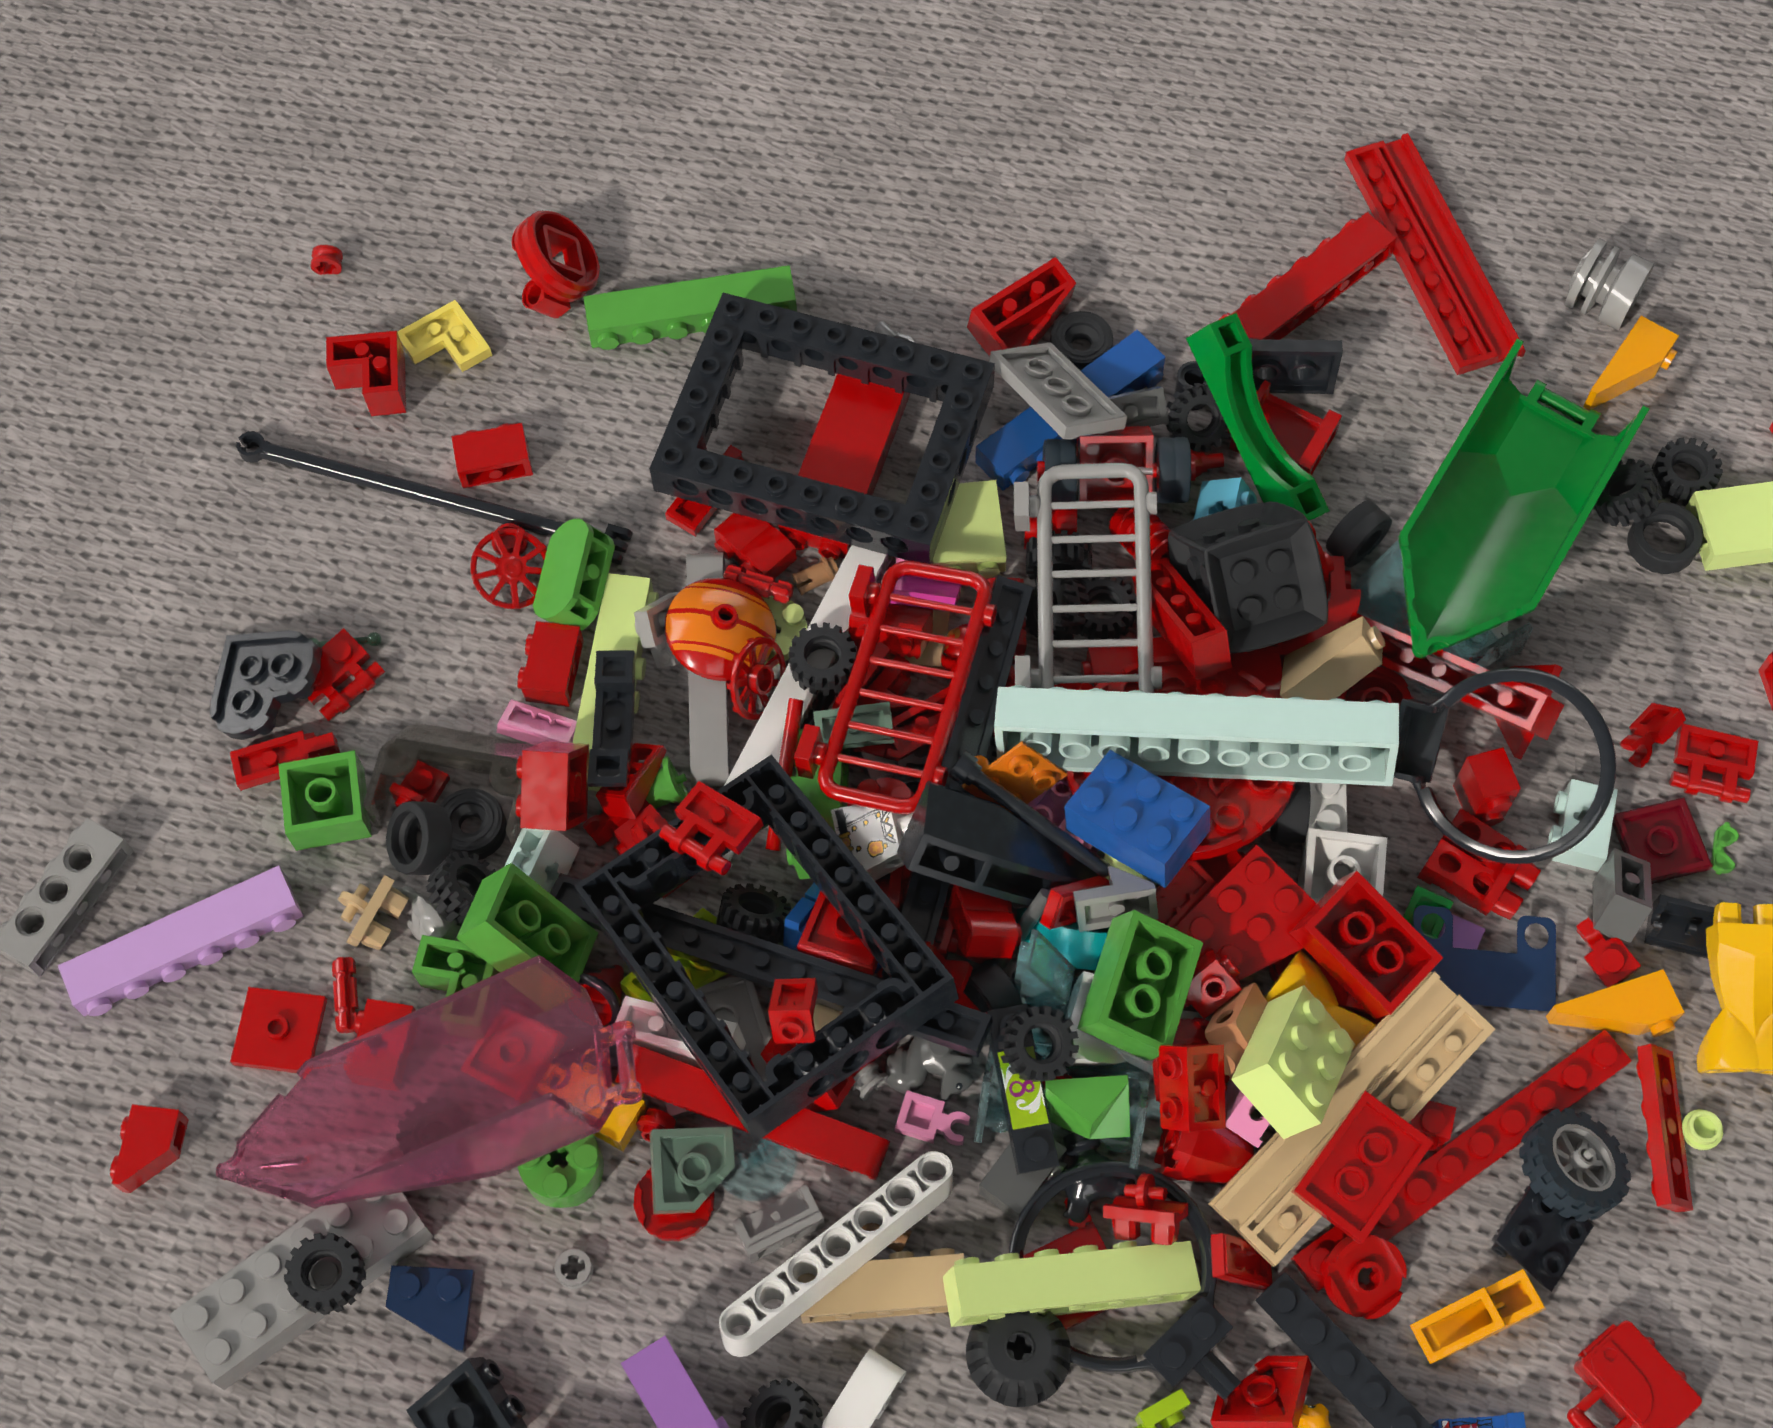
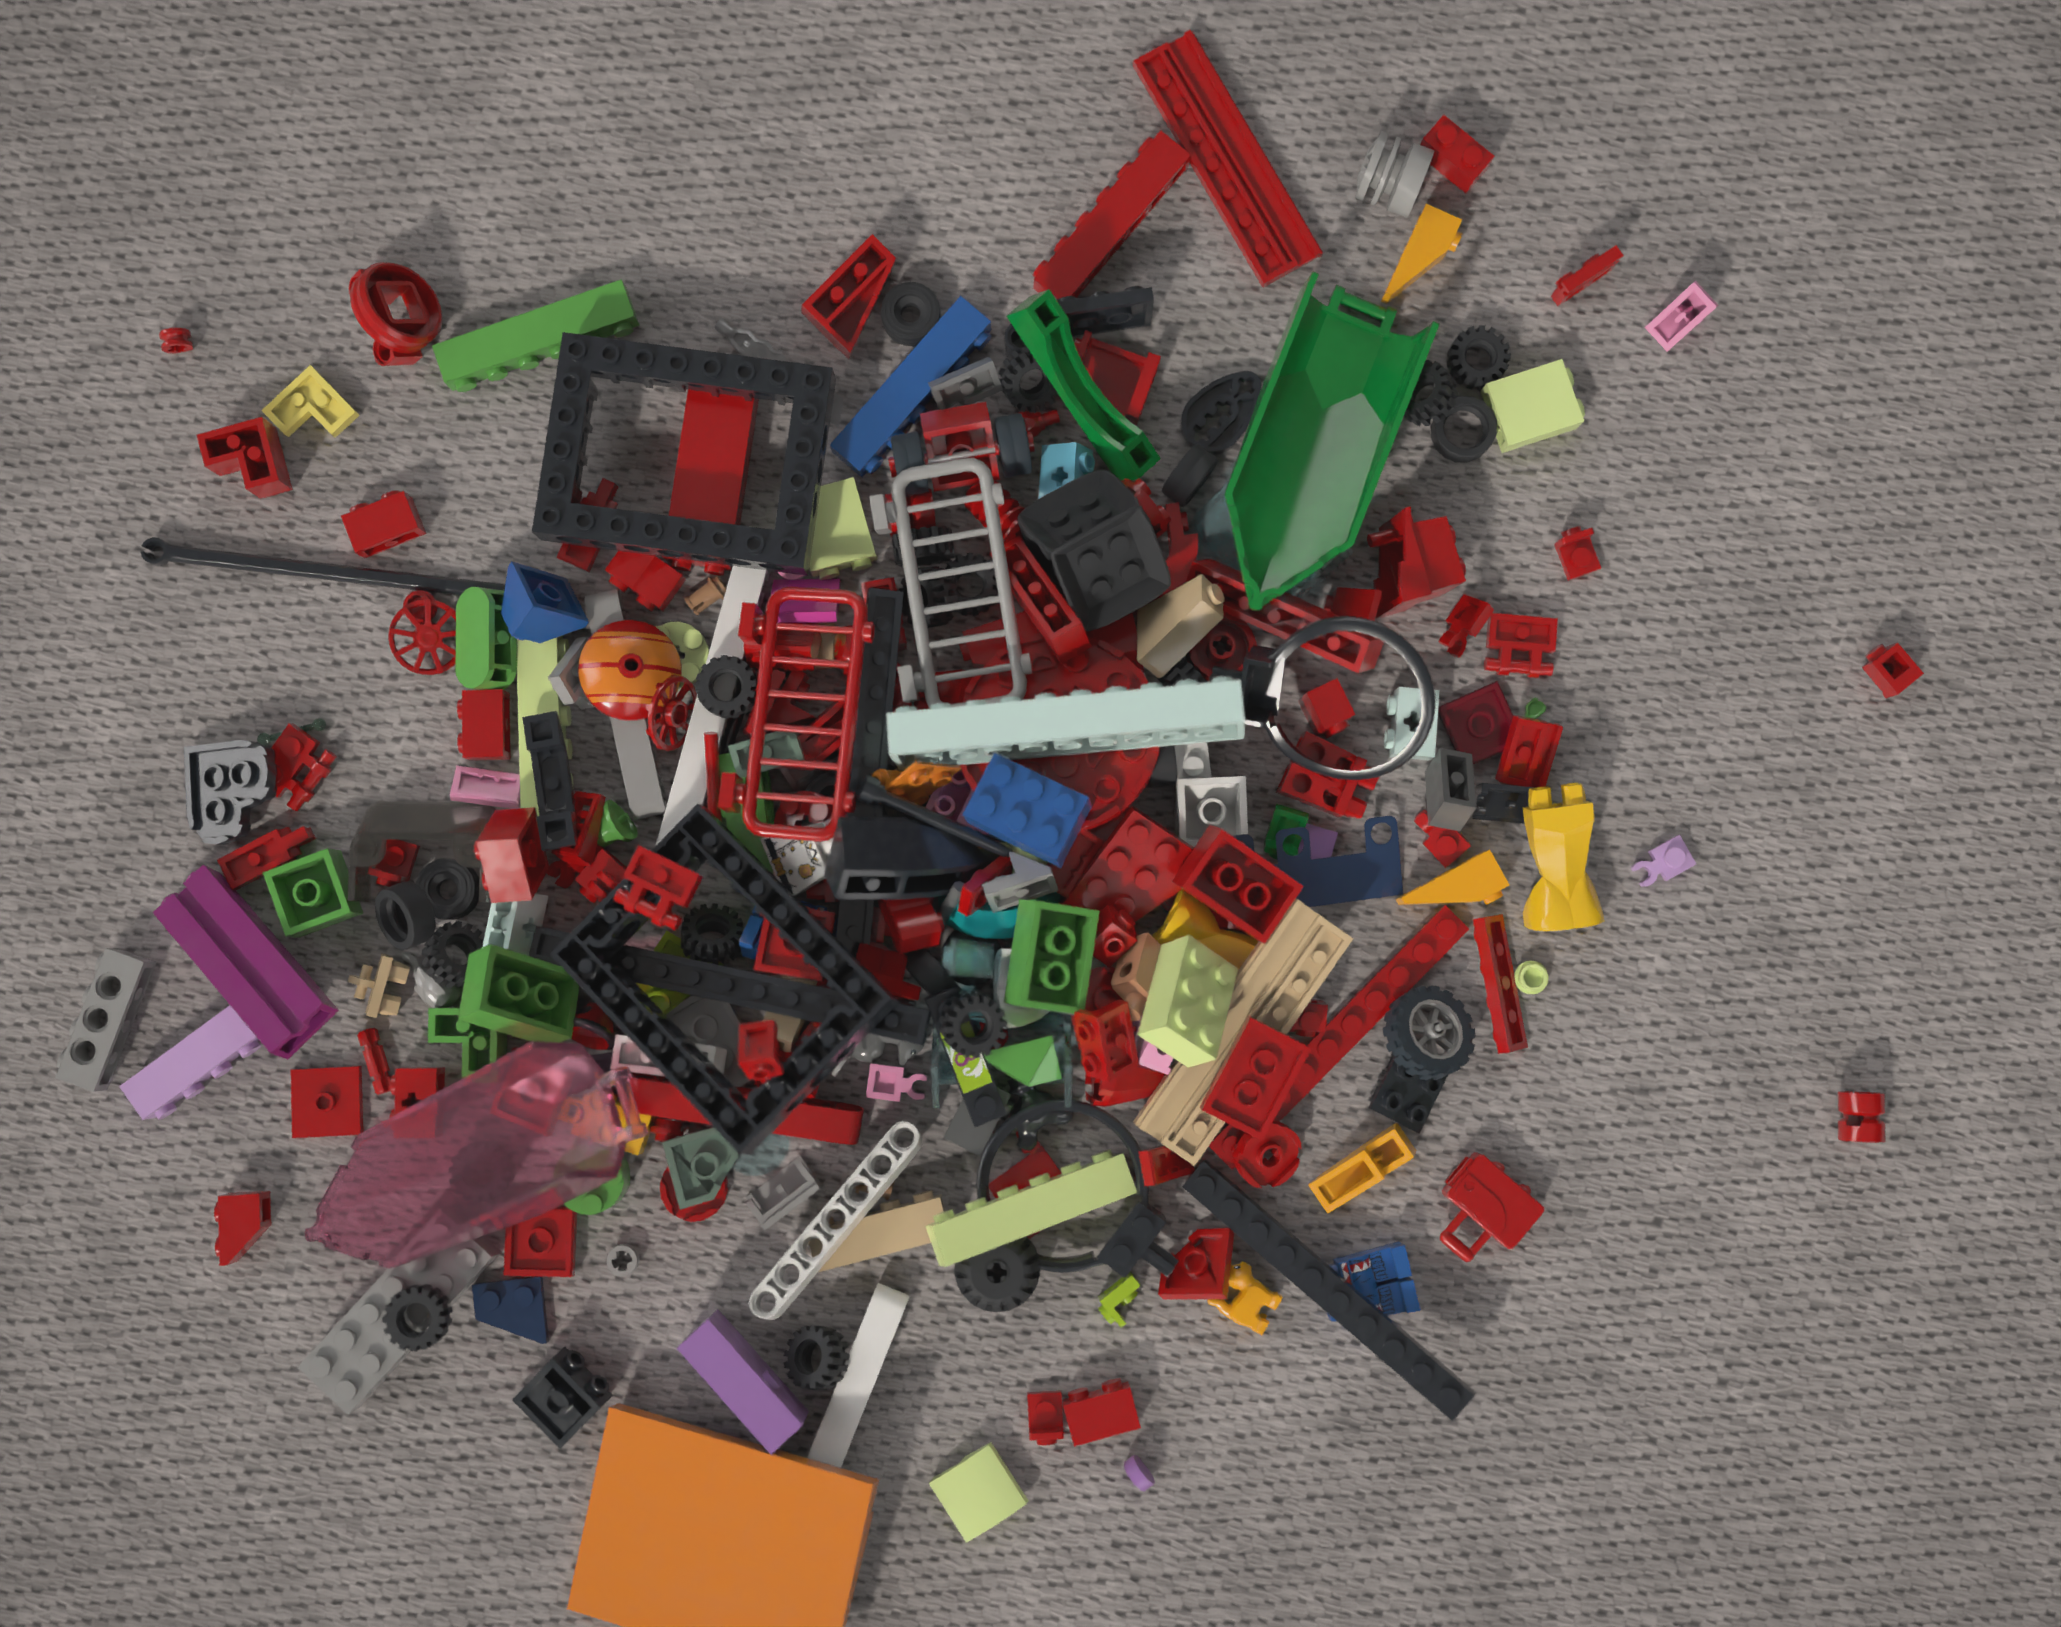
camera: 15 degrees left, 20 degrees up
(236, 855) = (245, 962): none -> magenta brick
(483, 1228) = (542, 1245): none -> red plate
(637, 549) = (539, 605): none -> blue slope
(761, 583) = (656, 616): red axle -> none
(1058, 390) = (894, 384): light grey plate -> none
(1148, 1205) = (1083, 1137): red hips -> none
(1403, 465) = (1204, 404): none -> black piece
(1604, 650) = (1415, 561): none -> red piece
(1678, 279) = (1456, 154): none -> red brick
(1717, 870) = (1528, 752): none -> red plate

